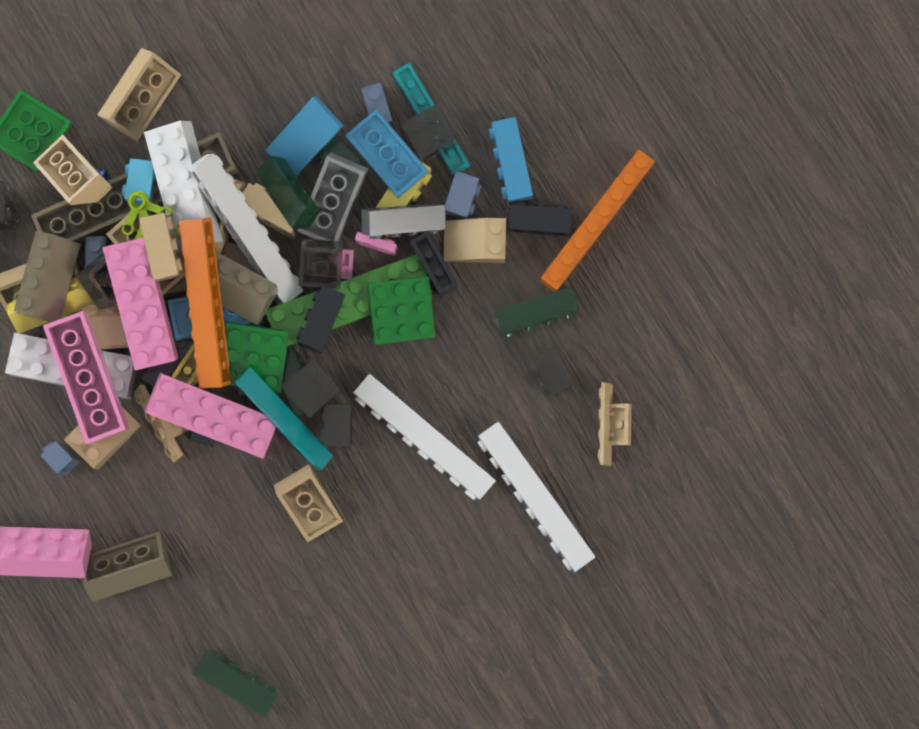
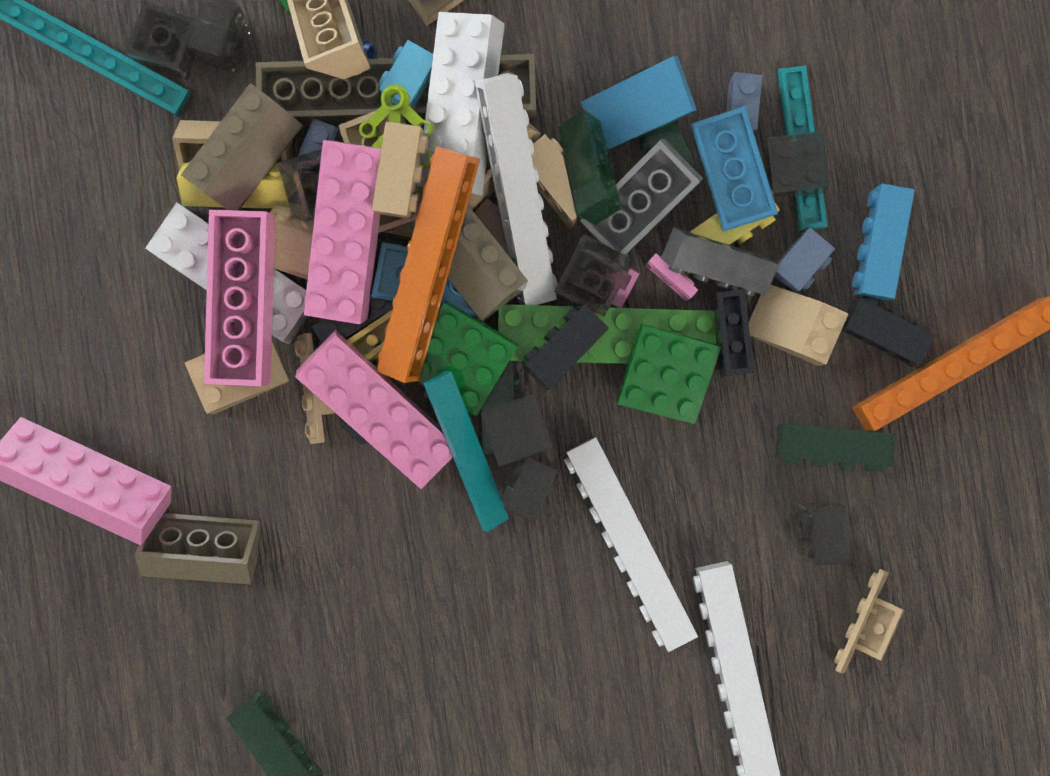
camera: 30 degrees right, 5 degrees up
(59, 458) = (170, 382): sand blue brick -> none
(307, 503) = (453, 563): tan slope -> none

